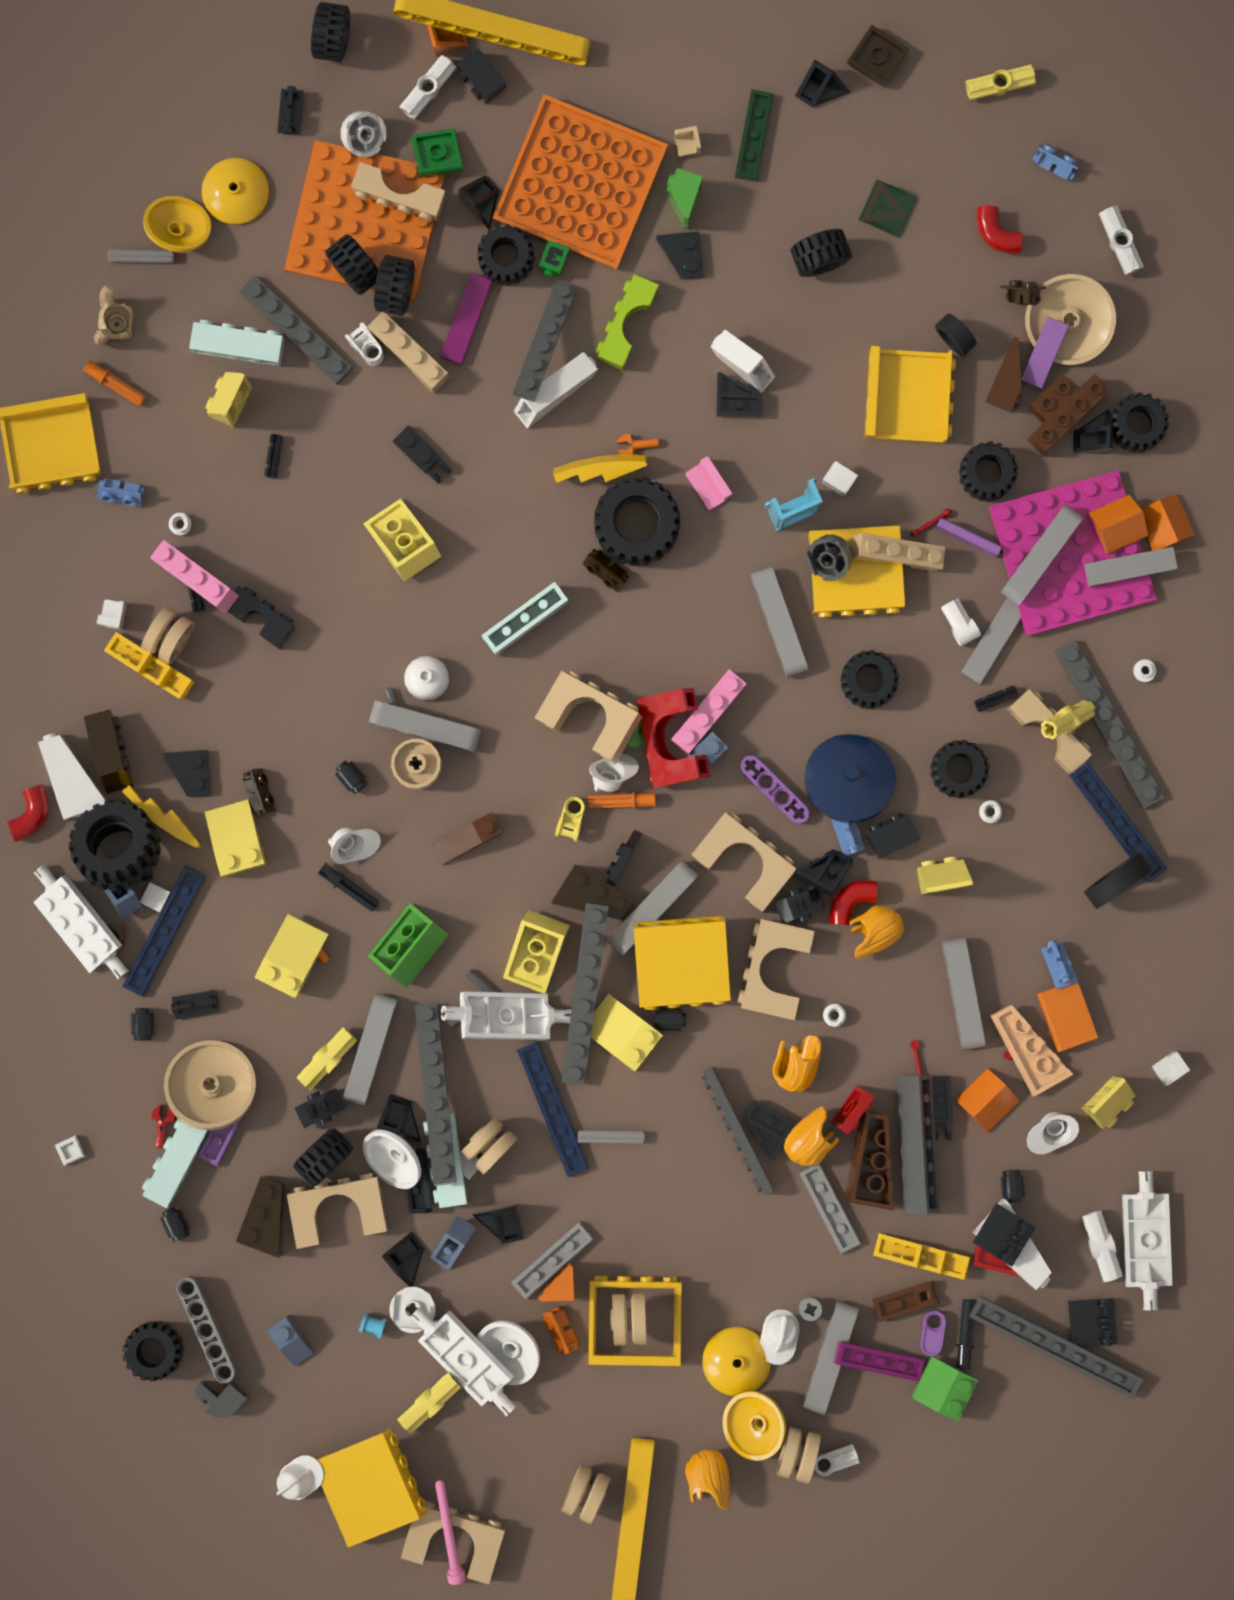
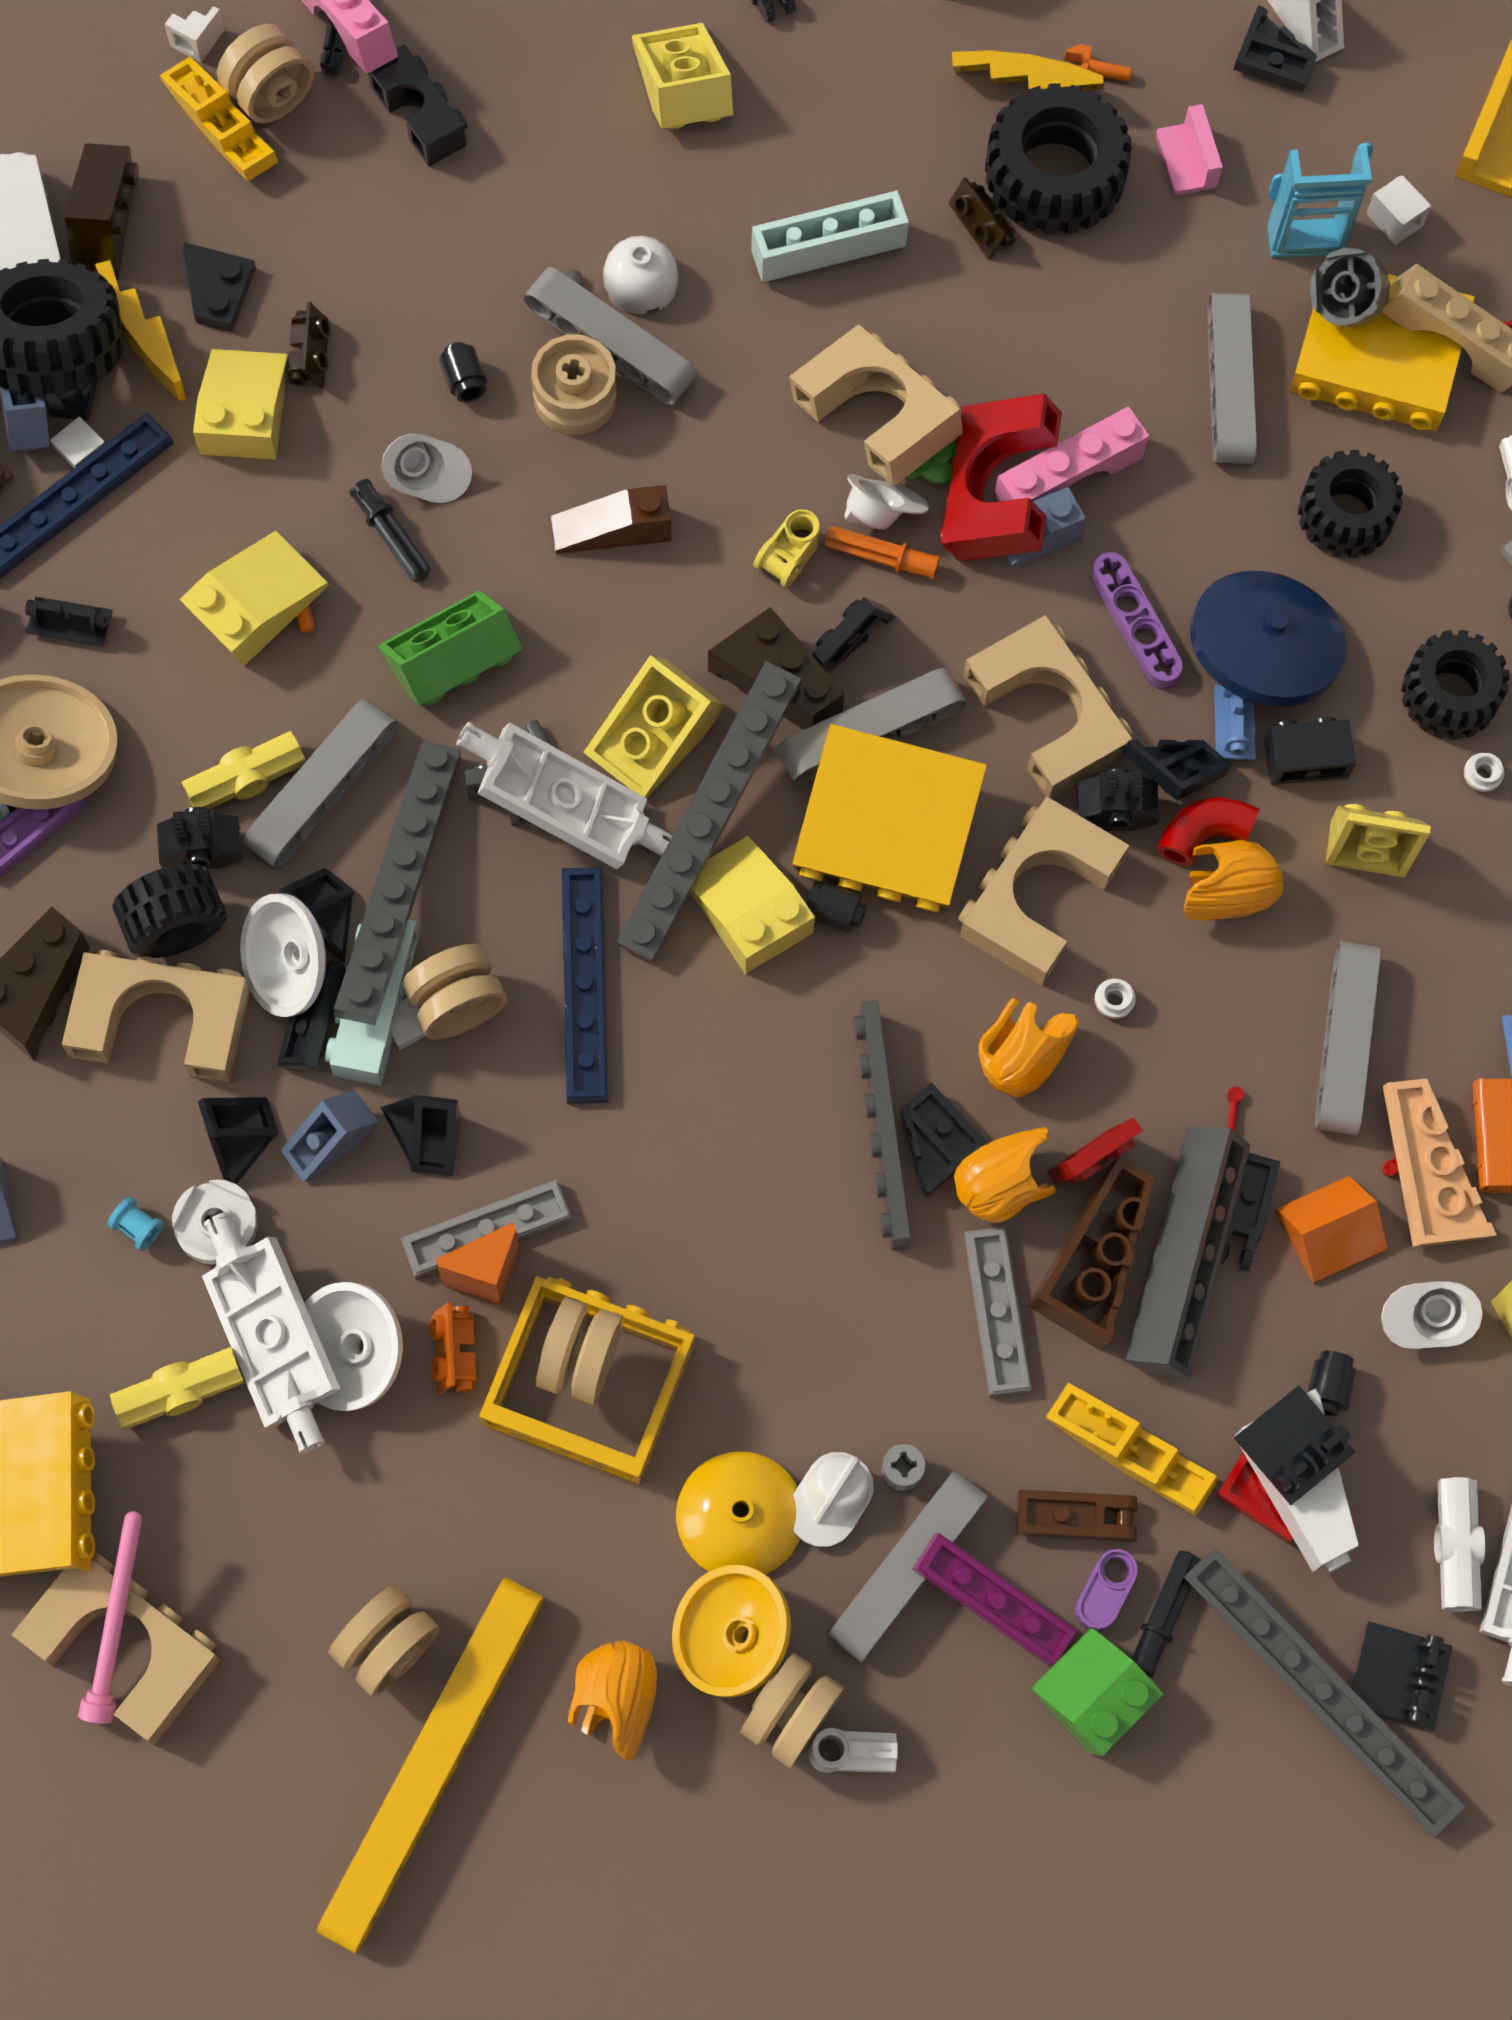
camera: 15 degrees right, 15 degrees down
(598, 1136) = (665, 1061): light grey axle -> none

